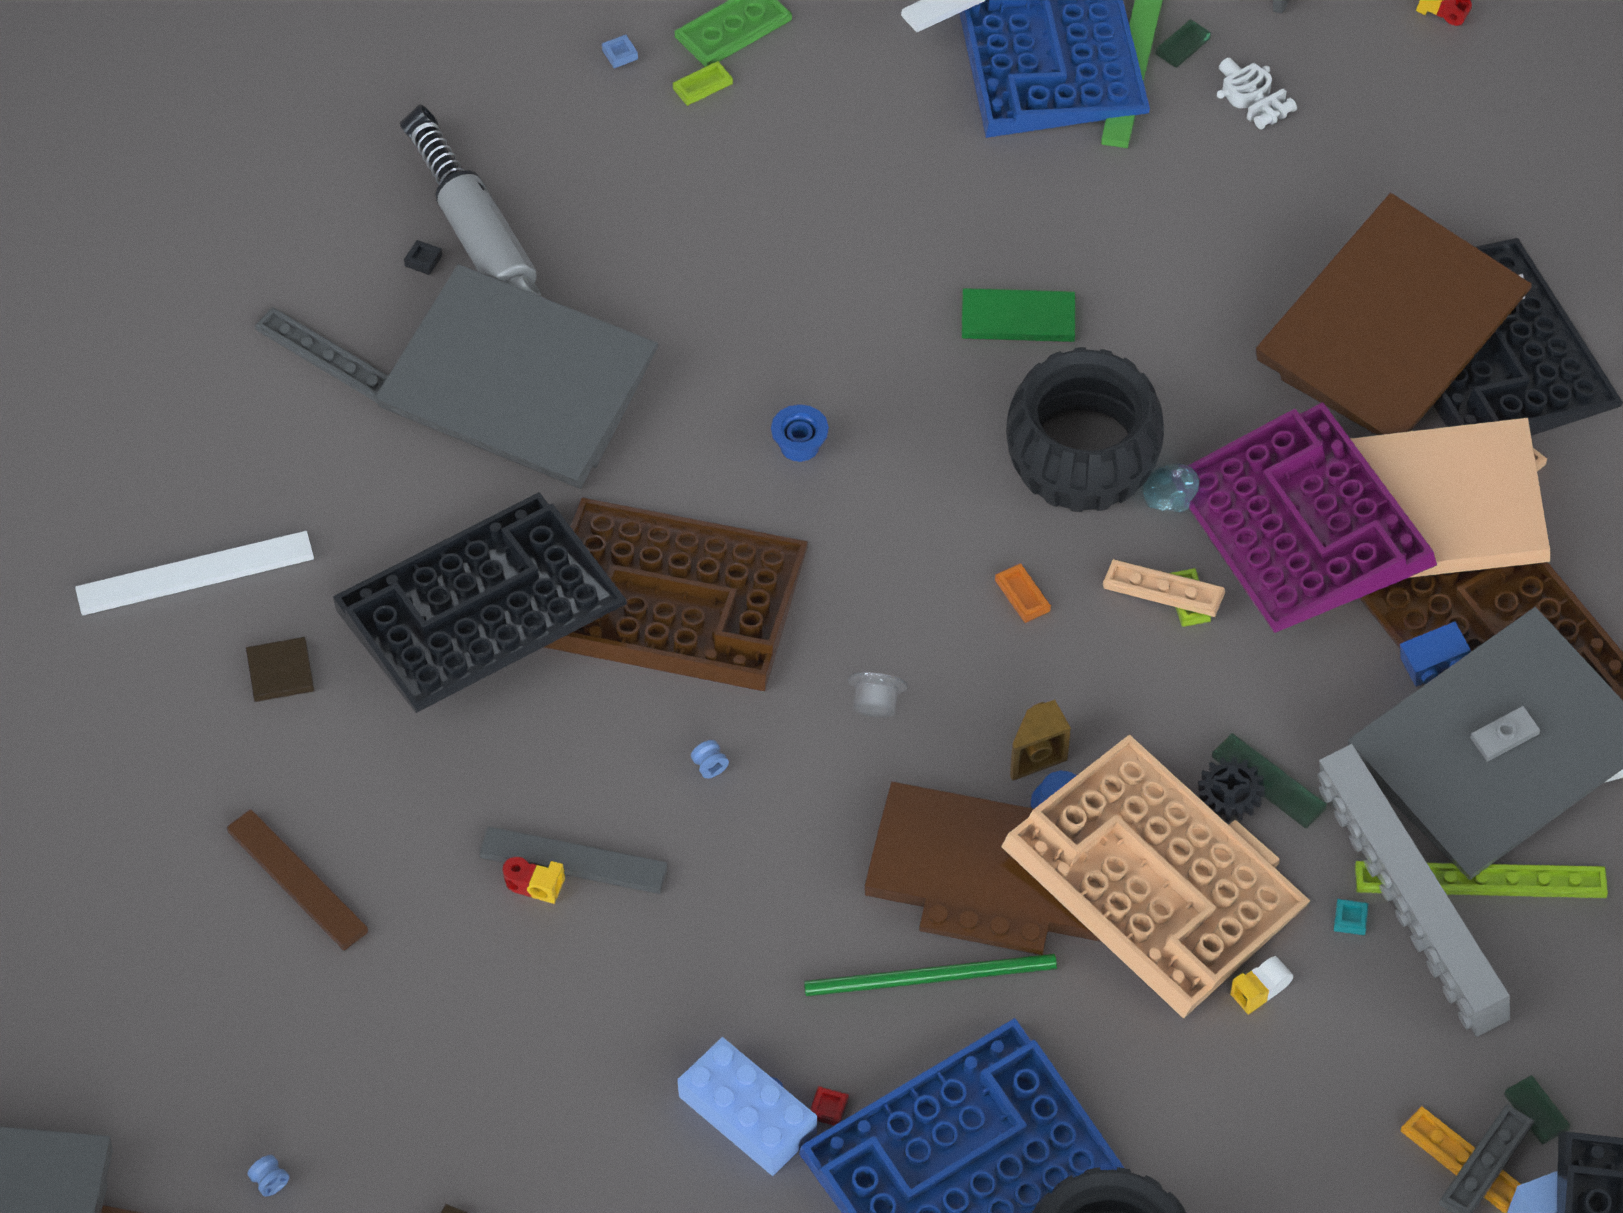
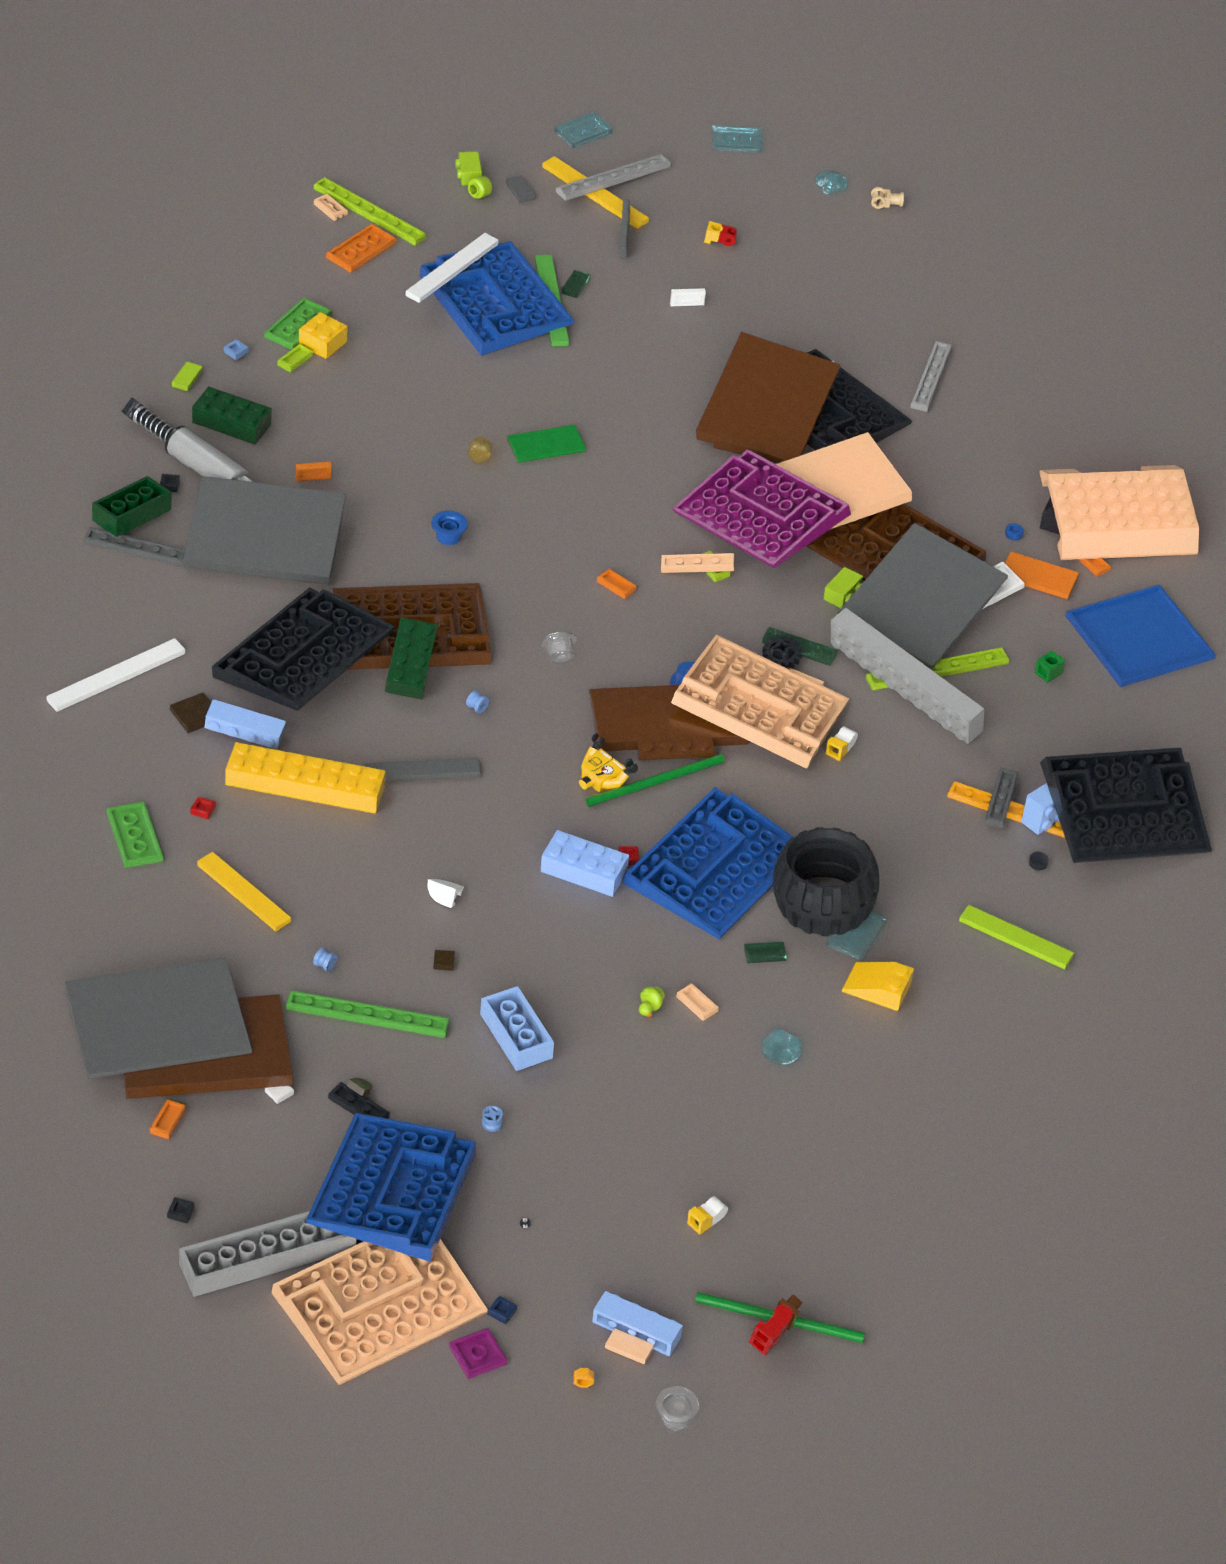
camera: 25 degrees left, 10 degrees down
(93, 864) = (134, 834): none -> bright green tile
(207, 1013) = (244, 891): none -> yellow tile
(215, 842) = (203, 807): none -> red tile
(297, 880) = (263, 815): reddish brown tile -> none
(336, 713) = (245, 724): none -> light blue brick
(340, 289) = (131, 506): none -> dark green brick
(386, 831) = (305, 777): none -> yellow brick
(508, 1096) = (444, 891): none -> white brick
(530, 80) = (187, 376): none -> lime tile
(533, 879) = (403, 783): leg -> none
(561, 163) = (231, 415): none -> dark green brick
(632, 659) = (411, 658): none -> dark green brick
(639, 286) = (313, 471): none -> orange tile
(756, 55) = (323, 335): none -> yellow brick
(849, 936) = (602, 770): none -> yellow torso
(907, 303) = (479, 450): none -> clear yellow head
(1040, 740) = (667, 649): pearl gold slope -> none
(1091, 383) = (619, 511): black tyre -> none
(1171, 487) = (678, 512): clear light blue dish -> none
(1244, 91) = (622, 301): white torso -> none
(1346, 104) = (687, 297): none -> white tile
(1351, 917) = (875, 701): teal tile -> none
(1381, 689) = (842, 587): none -> lime brick
(1433, 653) = (866, 560): blue brick -> none
(1505, 733) = (924, 589): light grey plate -> none
(1532, 1101) = (1026, 773): clear green tile -> none

